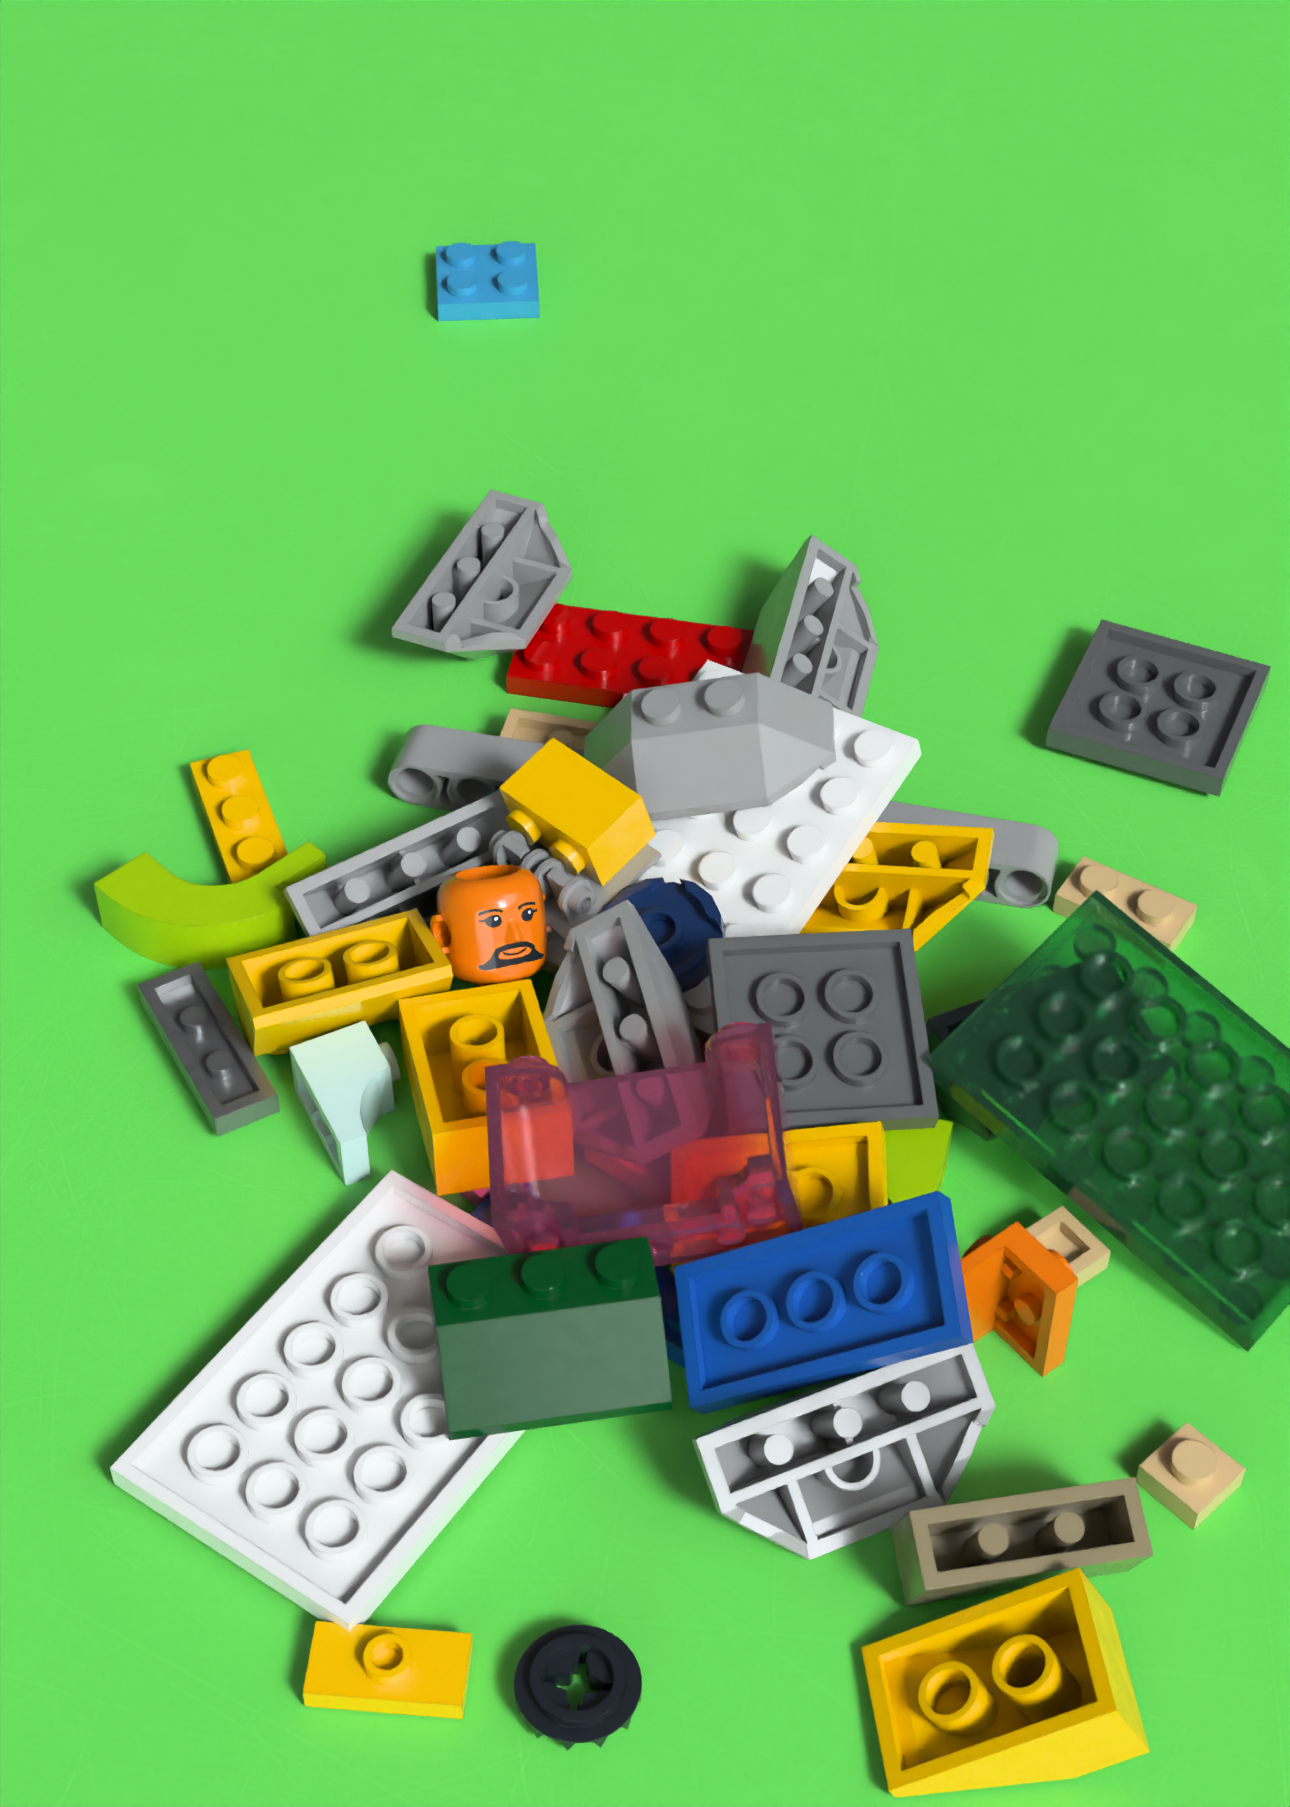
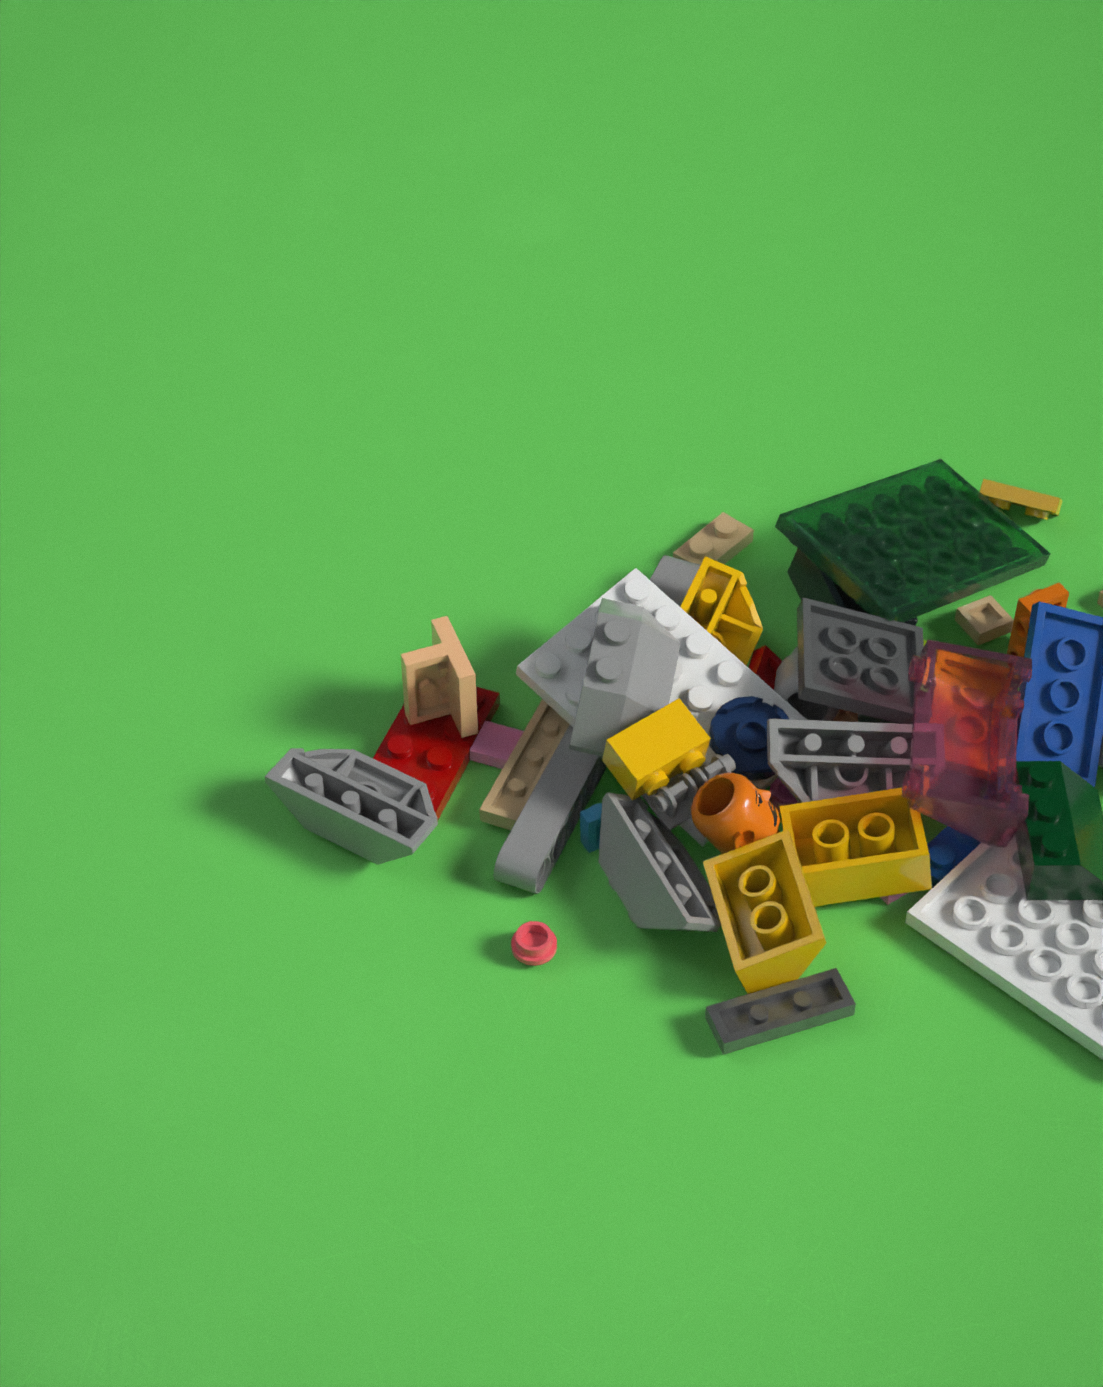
camera: 80 degrees left, 0 degrees up
(203, 923) = (655, 1026): lime arch -> none
(237, 814) = (552, 985): yellow plate -> none
(303, 795) = (534, 943): none -> coral plate
(345, 1089) = (852, 935): light aqua arch -> none
(688, 609) = (440, 681): none -> light nougat bracket
(817, 630) = (488, 647): light grey wedge -> none
(1158, 707) = (545, 494): dark grey plate -> none

